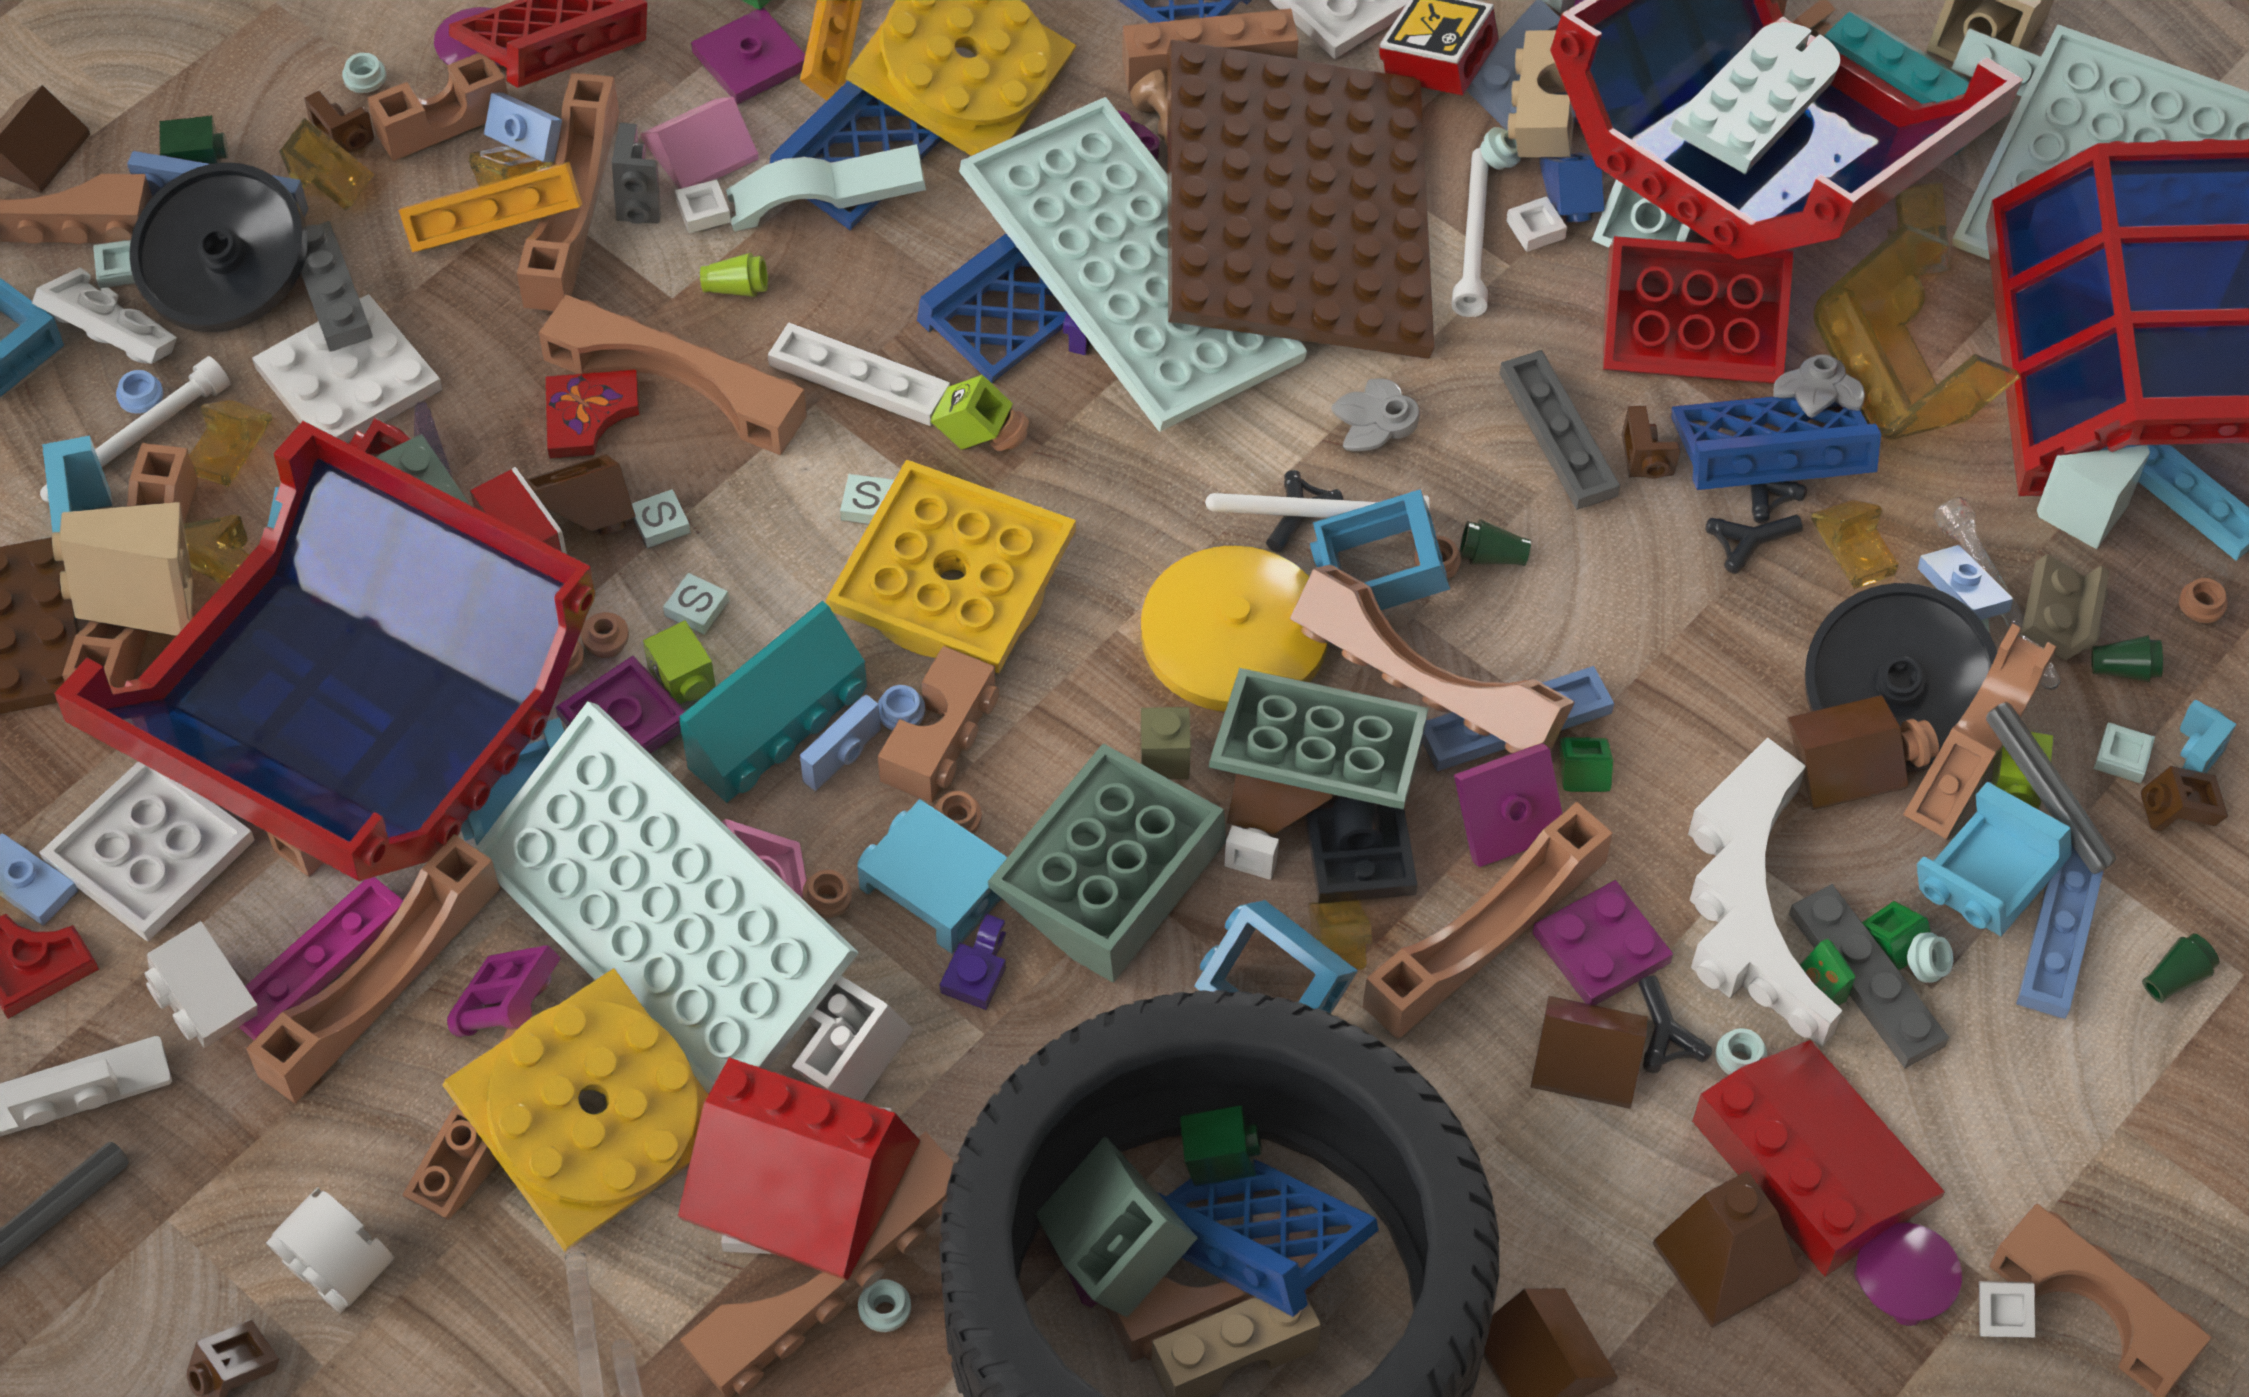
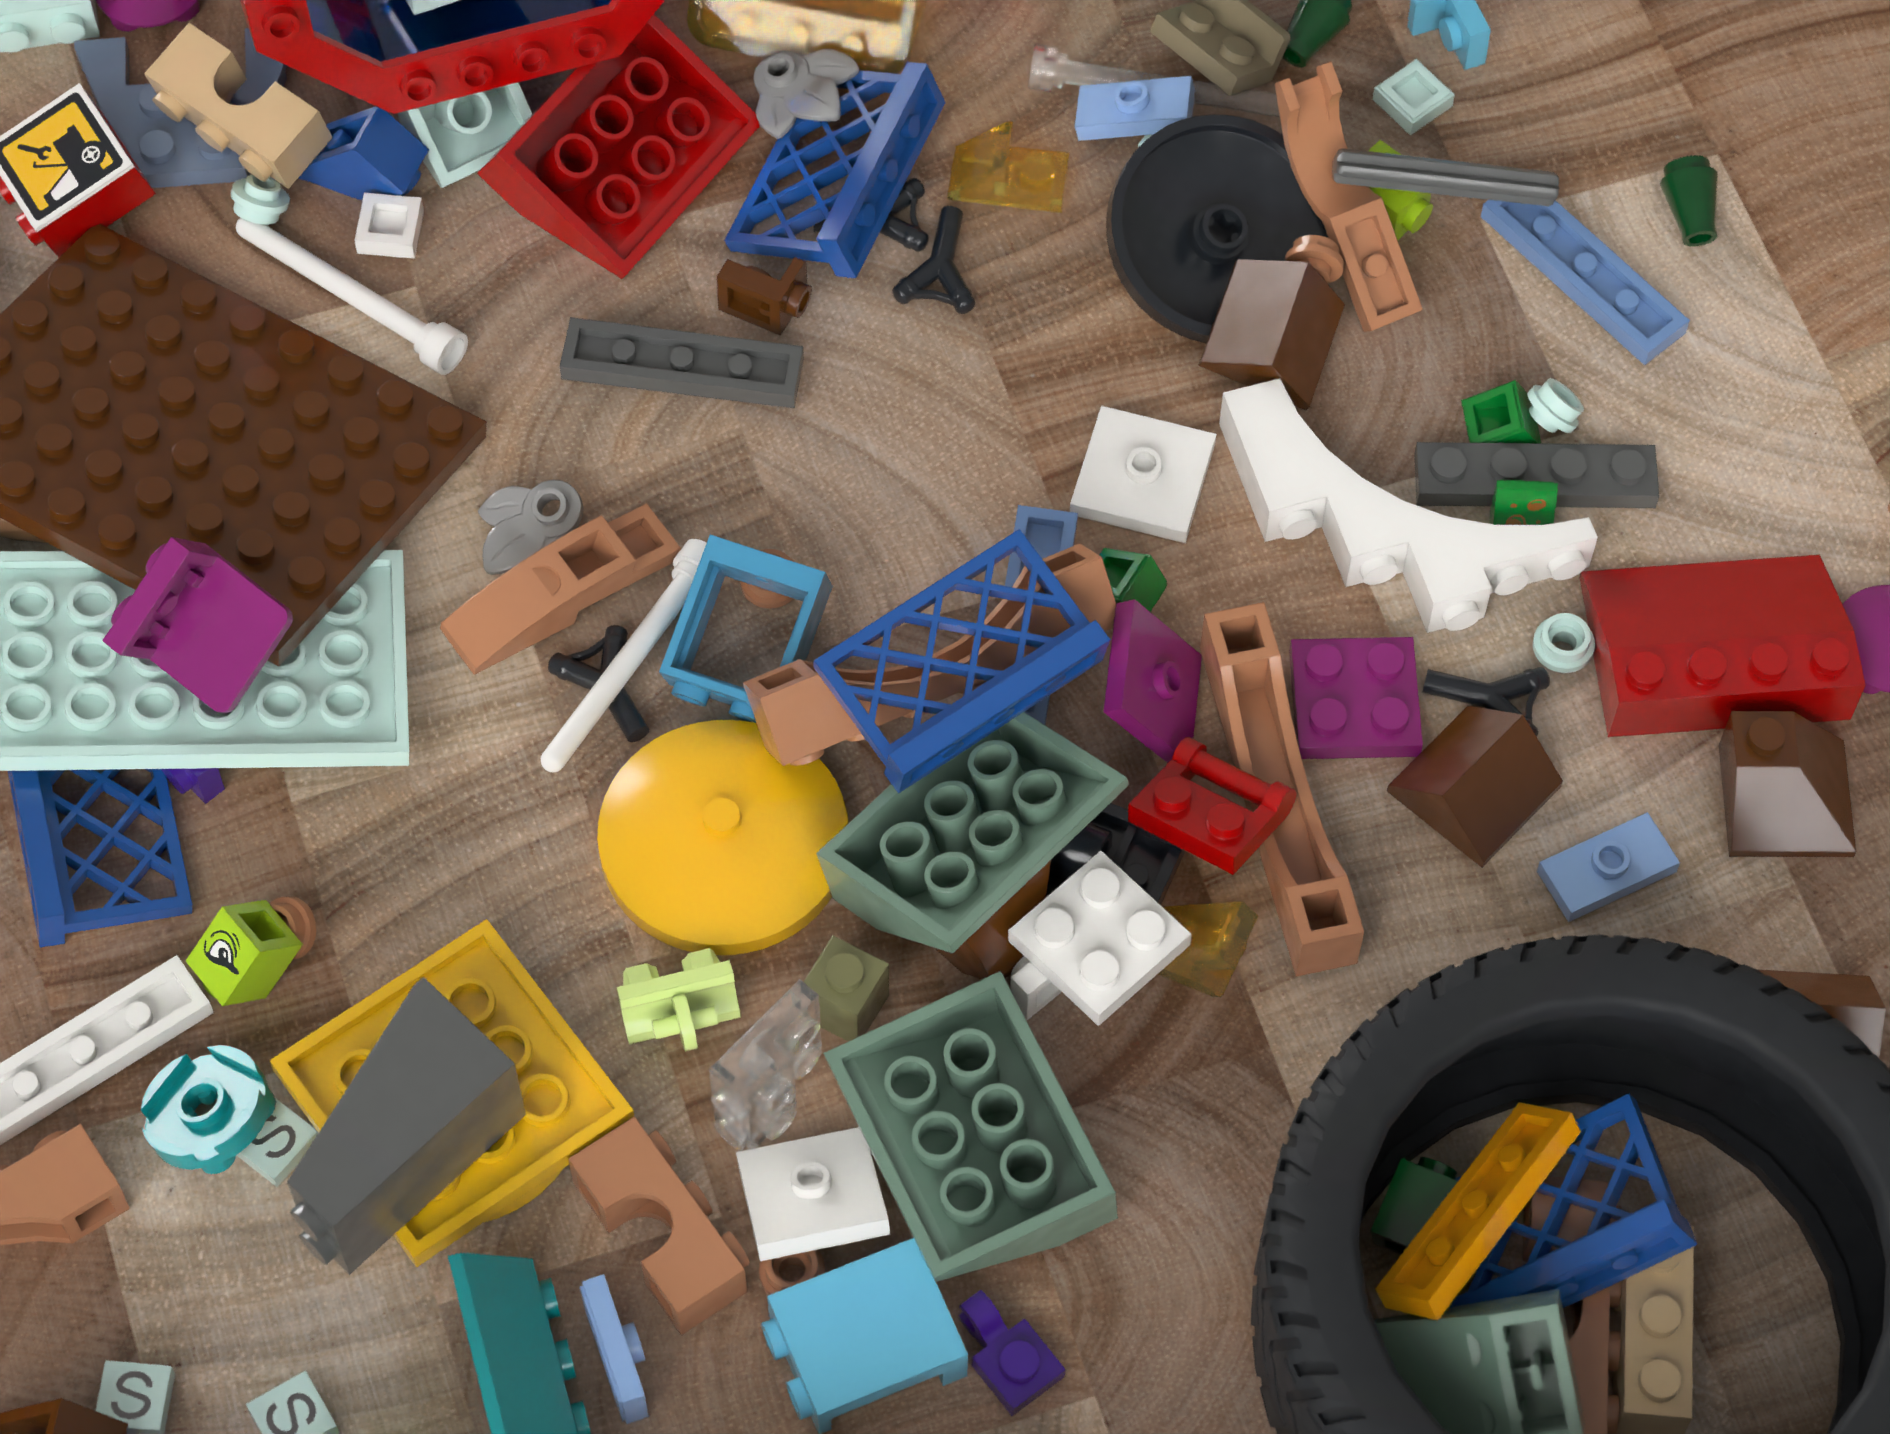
camera: 60 degrees left, 5 degrees up
(860, 451) = (224, 1131): none -> plate
(888, 533) = (403, 1129): none -> dark grey slope
(901, 703) = (604, 1251): light blue plate -> none
(1005, 792) = (812, 1193): none -> white plate
(1073, 717) = (758, 1074): none -> clear plate
(1094, 657) = (678, 1001): none -> yellowish green hips
(1159, 252) = (200, 622): none -> magenta bracket
(1227, 1163) = (1478, 1211): none -> light orange plate
(1291, 859) = (1099, 937): none -> white plate
(1331, 971) = (1299, 1026): dark azure window -> none
(1343, 439) = (556, 583): none -> nougat slope
(1413, 704) = (990, 704): none -> blue fence
(1427, 884) = (1204, 820): none -> red plate
(1493, 545) = (790, 516): dark green cone -> none
(1583, 1163) = (1608, 867): none -> light blue plate
(1681, 733) = (1143, 474): none -> white plate
(1996, 861) = (1486, 280): medium azure panel -> none
(2184, 796) = (1503, 81): reddish brown bracket -> none

